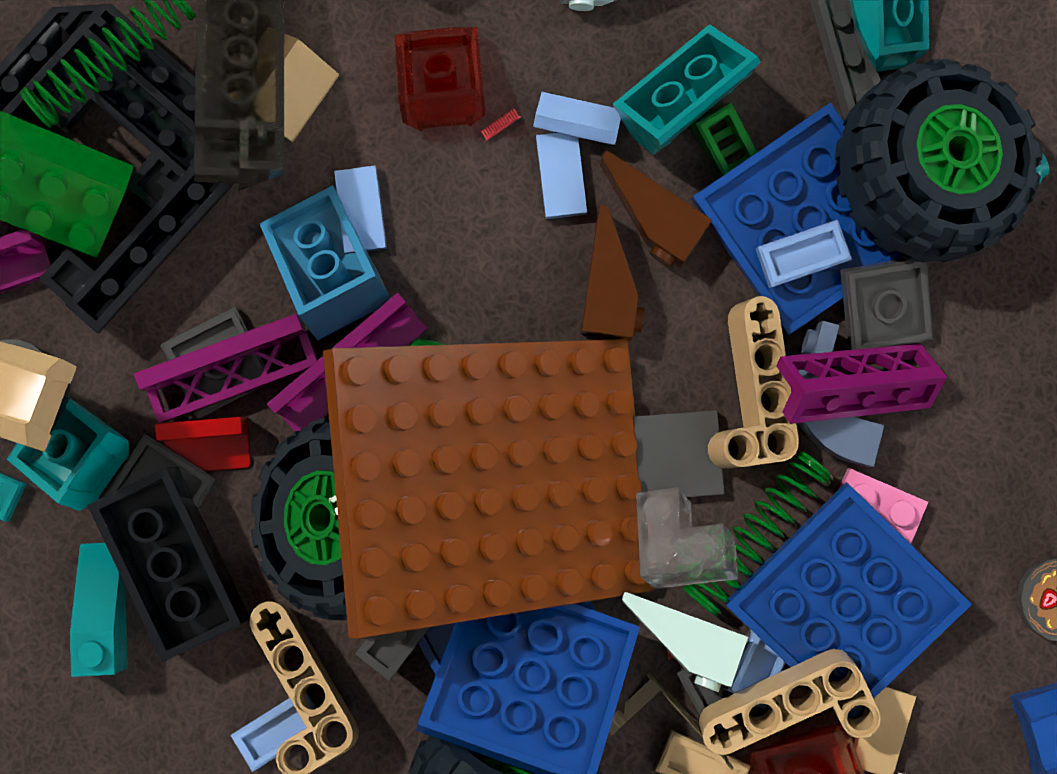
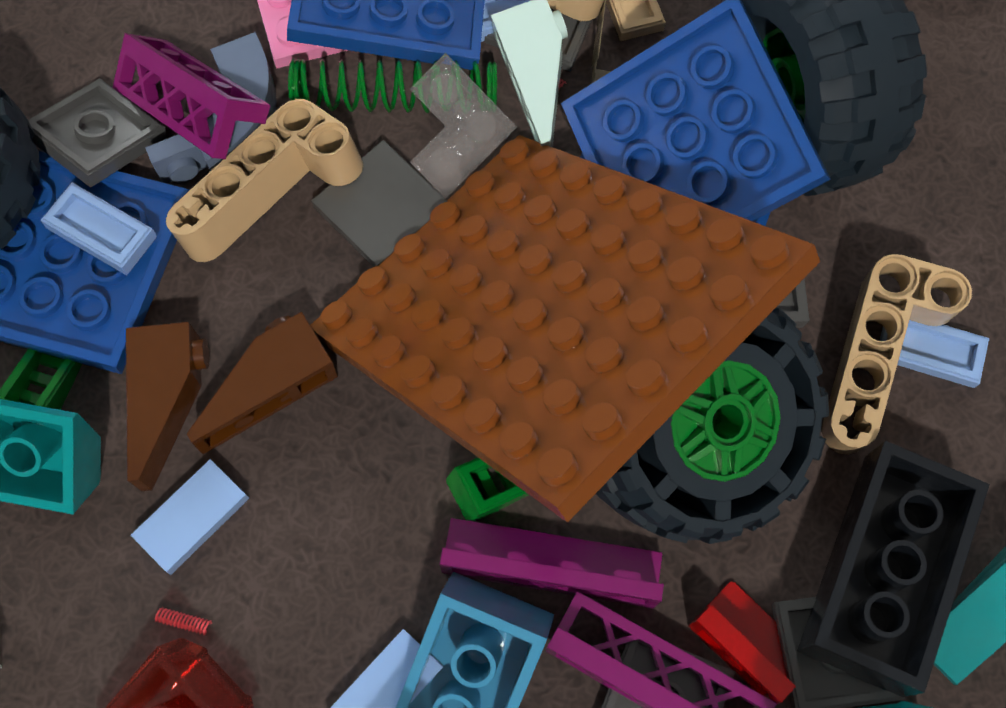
camera: 130 degrees left, 15 degrees down
(577, 118) = (116, 543): light blue tile -> none

